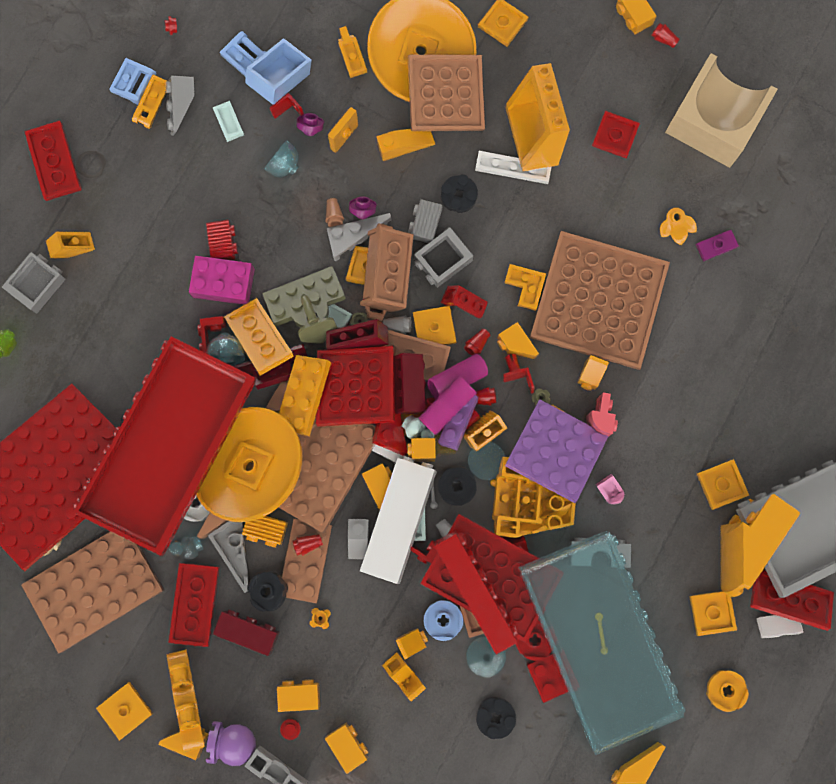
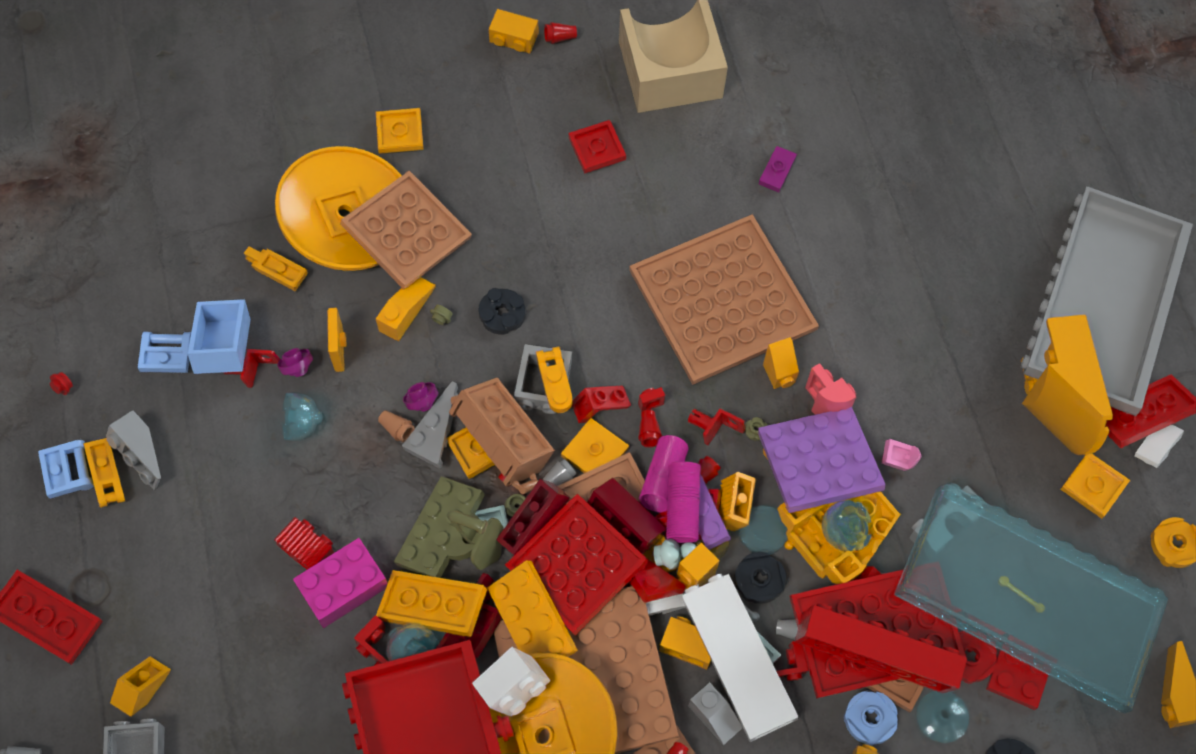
camera: 45 degrees left, 15 degrees down
(228, 121) = (205, 427): light aqua tile -> none
(229, 442) = (503, 728): none -> red plate
(252, 422) = (511, 682): none -> white brick
(420, 165) = (441, 315): none -> olive plate
(426, 221) = (494, 358): light grey brick -> none
(445, 265) = (555, 380): none -> light orange plate
(495, 324) = (651, 398): none -> red plate
(509, 167) = (531, 247): white plate -> none
(516, 342) = (684, 396): light orange slope -> none
(530, 282) = (644, 334): light orange plate -> none
(530, 504) = (846, 526): none -> clear light blue cylinder
(538, 119) = (508, 196): light orange windscreen -> none
(677, 229) = (729, 181): light orange plate -> none
(722, 484) = (988, 365): light orange plate -> none

